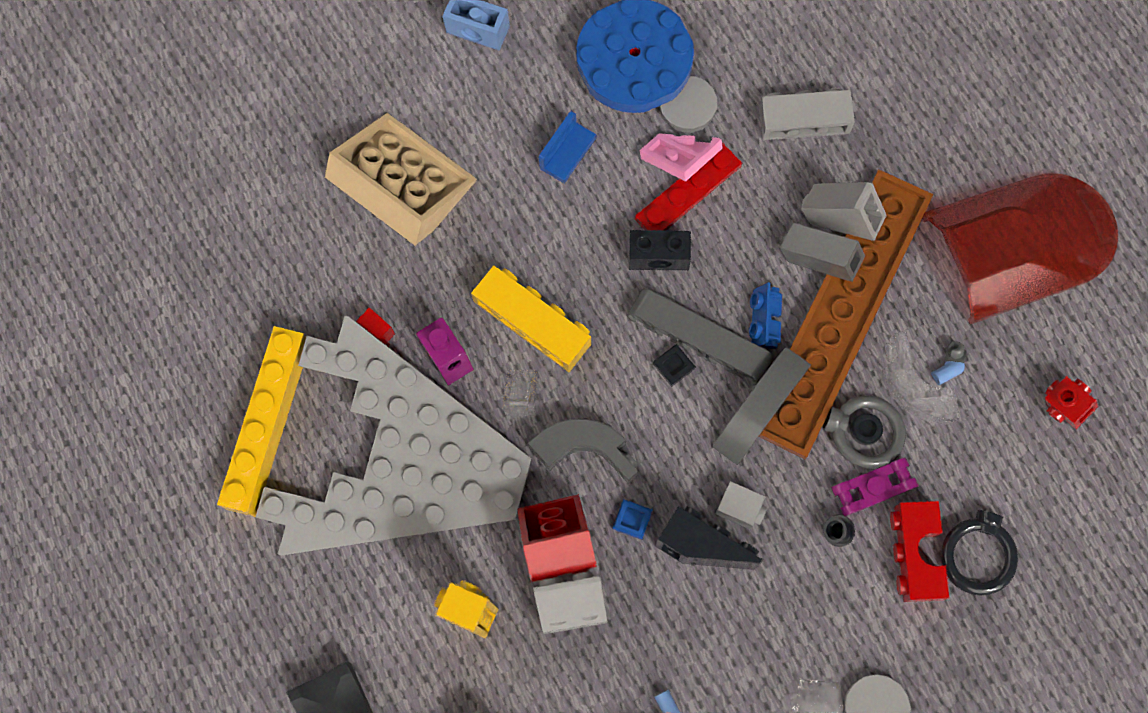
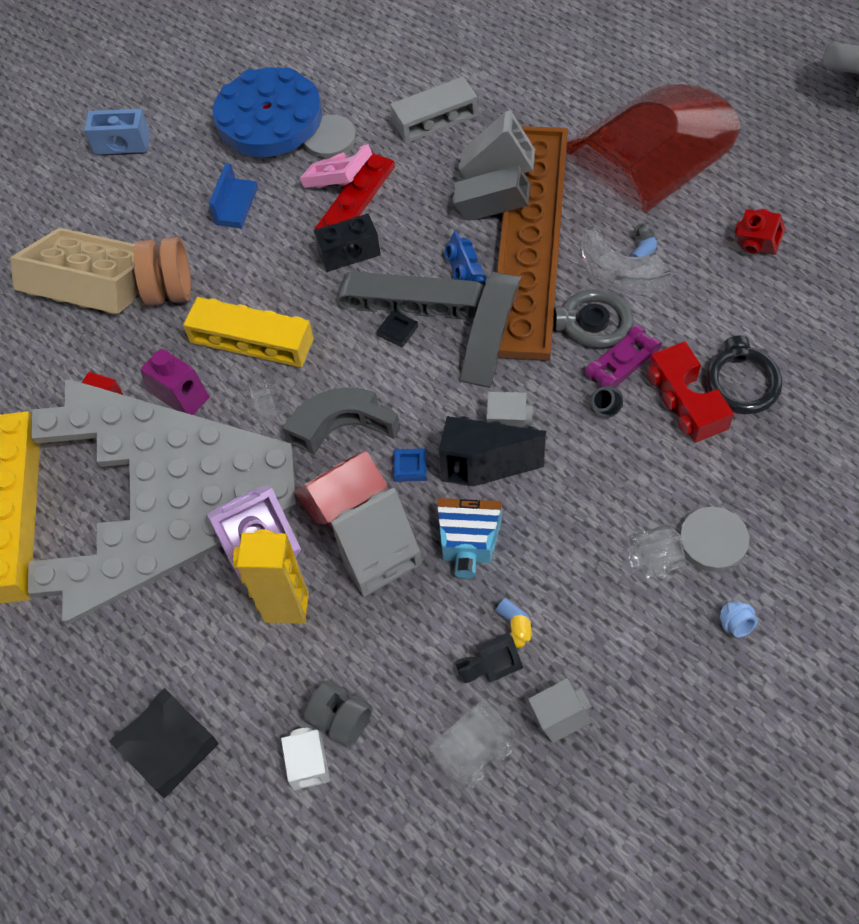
camera: 20 degrees left, 15 degrees down
(467, 538) = (249, 513): none -> lavender slope
(470, 219) = (162, 270): none -> nougat wheel
(658, 614) = (468, 532): none -> torso

